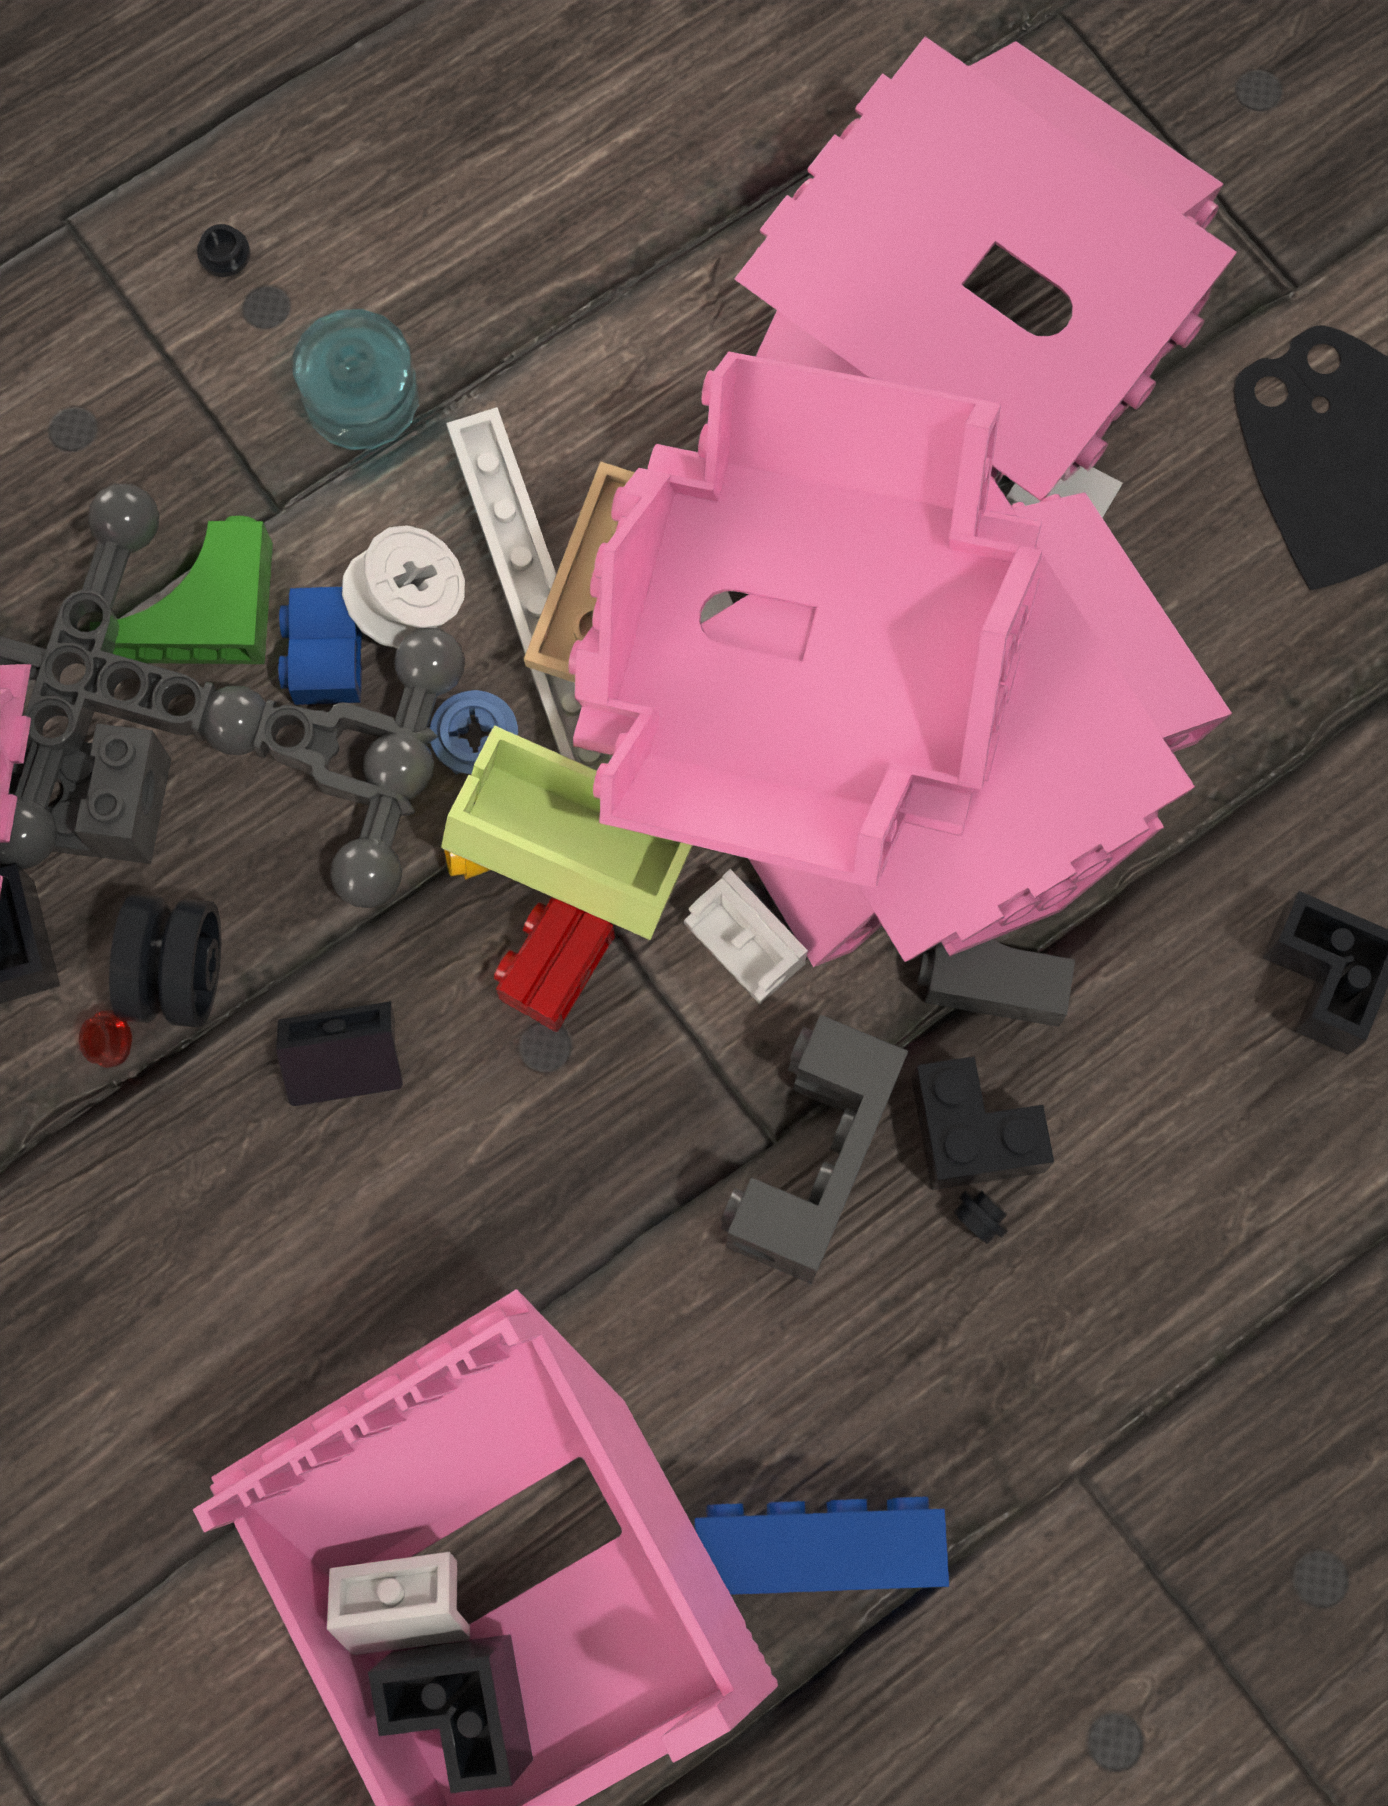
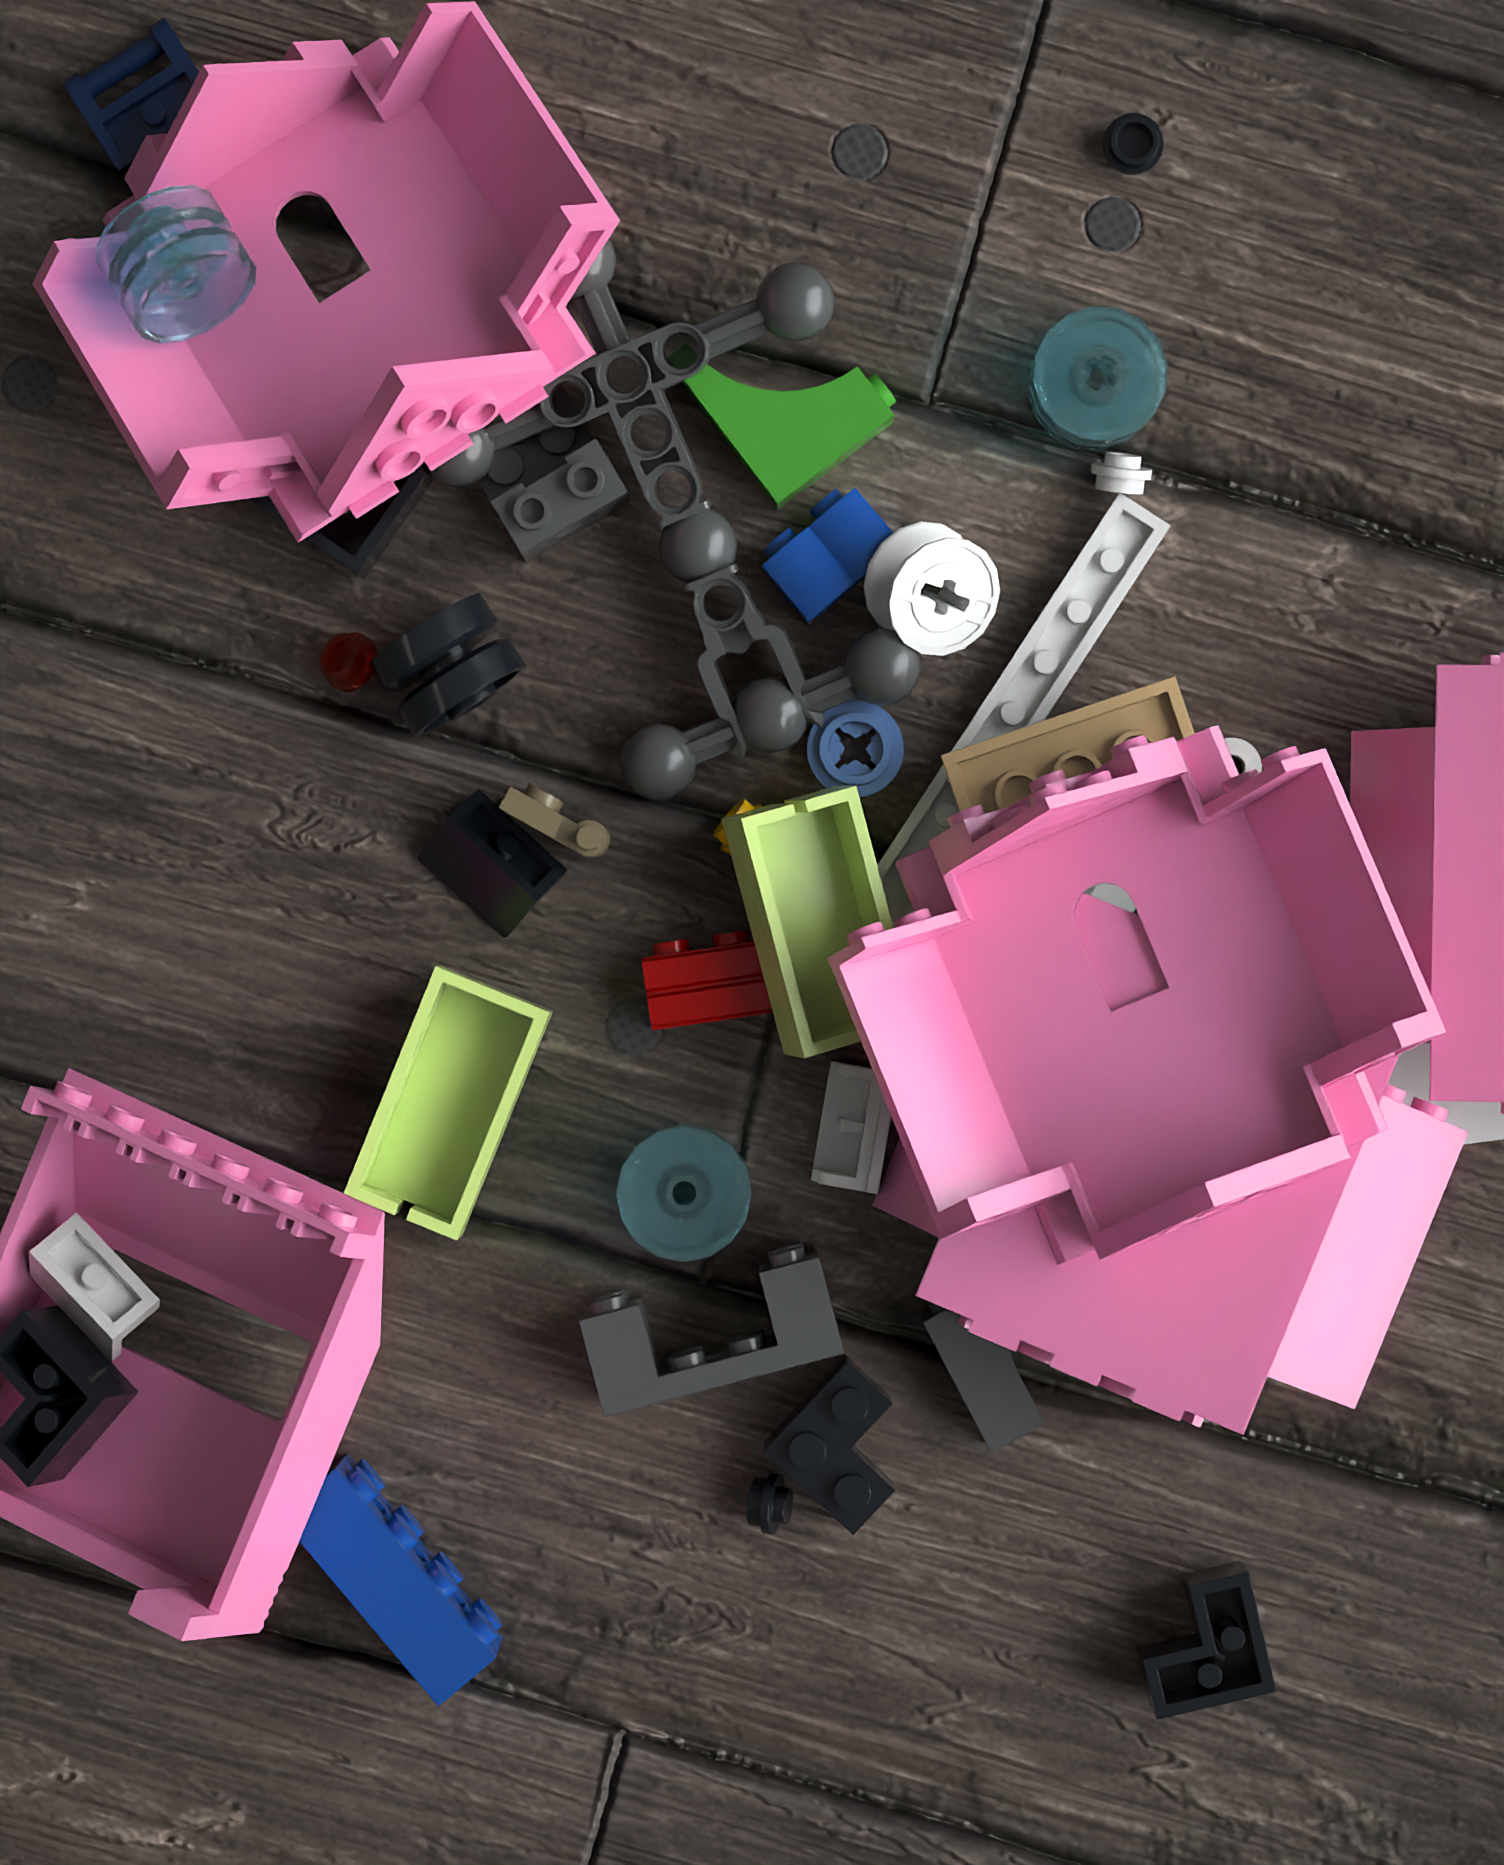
camera: 50 degrees right, 15 degrees up
(336, 978) = (542, 813): none -> dark tan plate
(433, 414) = (1121, 473): none -> white plate
(483, 1206) = (448, 1102): none -> yellowish green piece
(699, 1126) = (685, 1228): none -> clear light blue wheel

